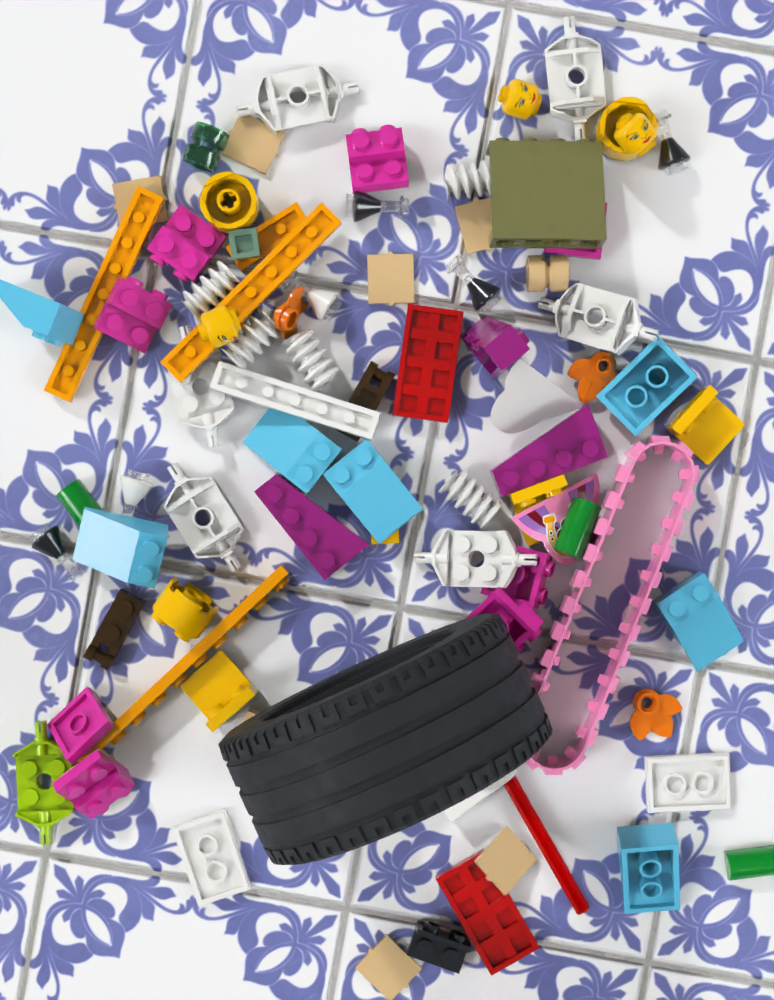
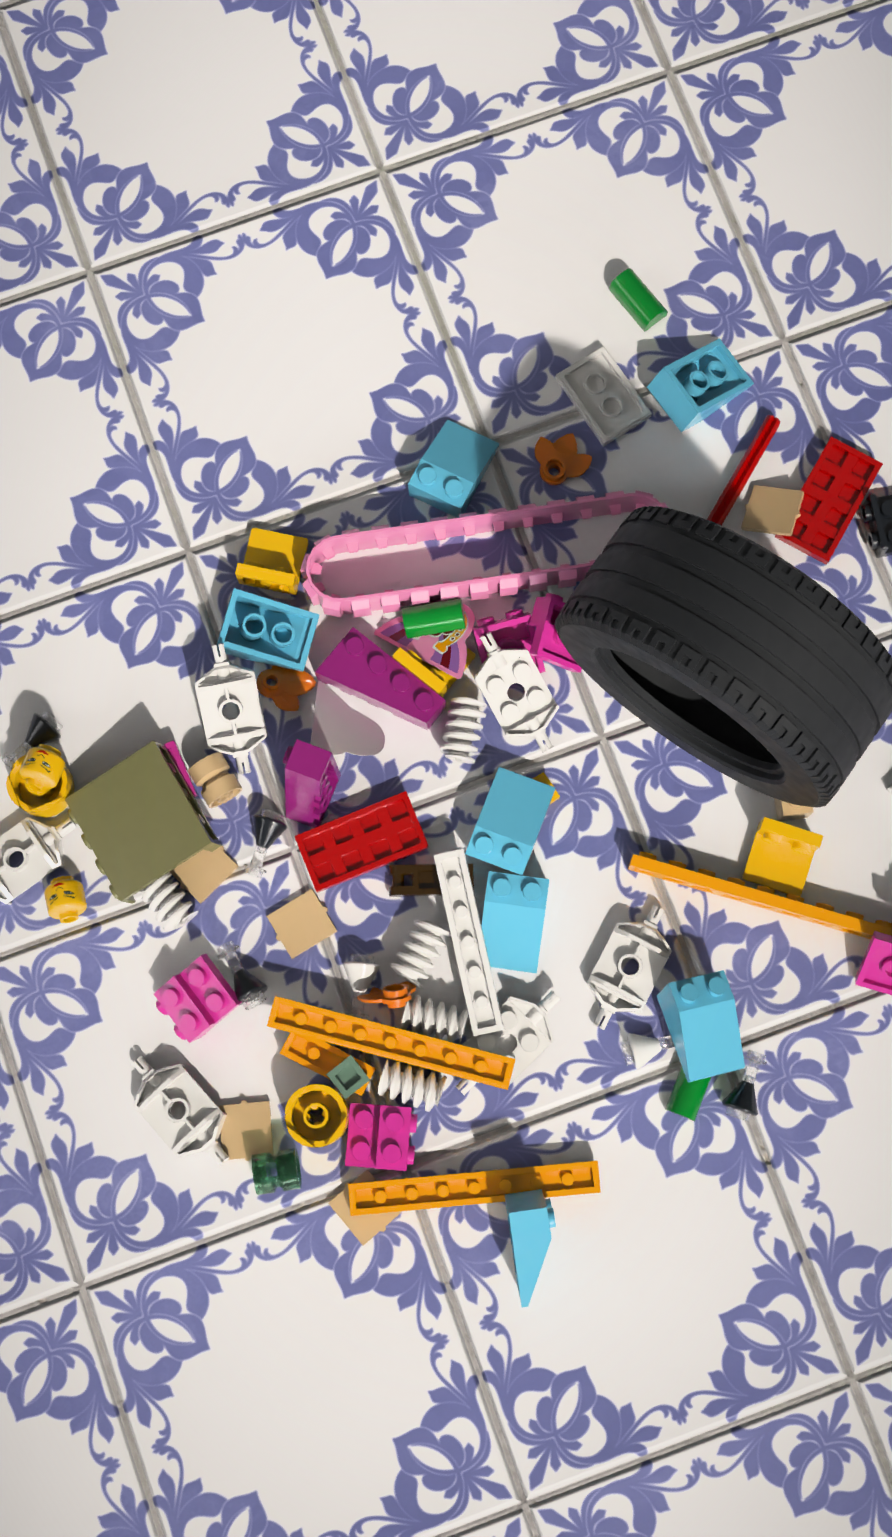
camera: 115 degrees left, 10 degrees down
(115, 628) = (784, 990): dark brown plate -> none
(133, 313) = (476, 1147): dark pink plate -> none
(184, 609) = (726, 931): yellow brick -> none
(219, 326) = (441, 1049): yellow head -> none
(315, 531) = (579, 852): magenta wedge -> none

